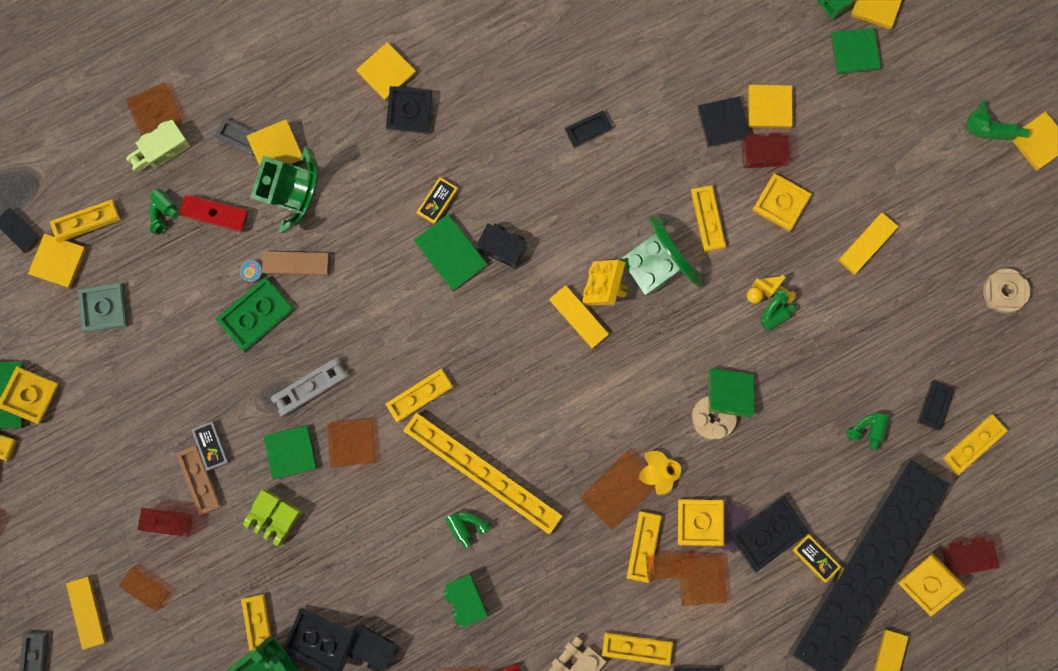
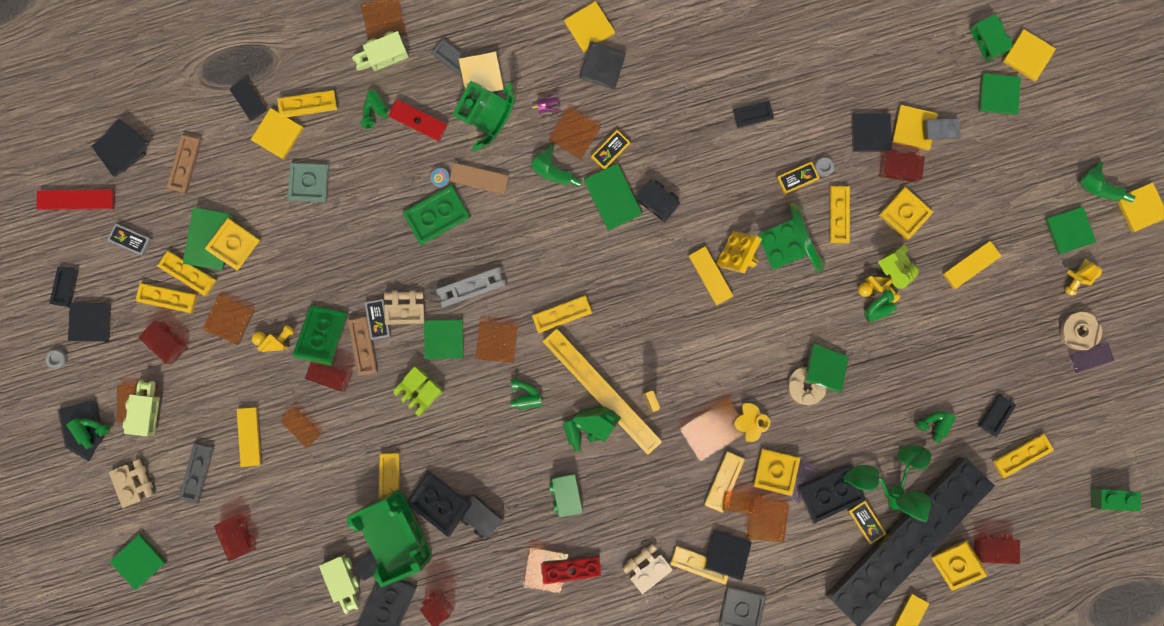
camera: 10 degrees right, 5 degrees up
(38, 483) = (228, 320): none -> clear orange tile
(93, 497) = (272, 342): none -> yellow piece
(147, 477) = (320, 335): none -> green tile
(239, 432) = (404, 313): none -> tan plate
(351, 165) = (542, 104): none -> flat silver piece
(367, 236) = (544, 167): none -> green animal
(393, 191) = (574, 133): none -> clear orange tile
(399, 503) = (526, 401): none -> green plant
(484, 508) = (597, 421): none -> green slope
(539, 470) = (651, 401): none -> yellow tile
(653, 188) = (798, 178): none -> tile
(665, 630) = (727, 555): none -> black tile
(679, 170) = (824, 166): none -> light grey tile
(787, 262) = (899, 267): none -> lime legs
(799, 101) = (941, 129): none -> tile
(862, 523) = (915, 503): none -> green plant
(968, 183) = (1070, 230): none -> green tile
(997, 226) = (1085, 274): none -> yellow piece
(1025, 318) = (1091, 358): none -> clear purple tile

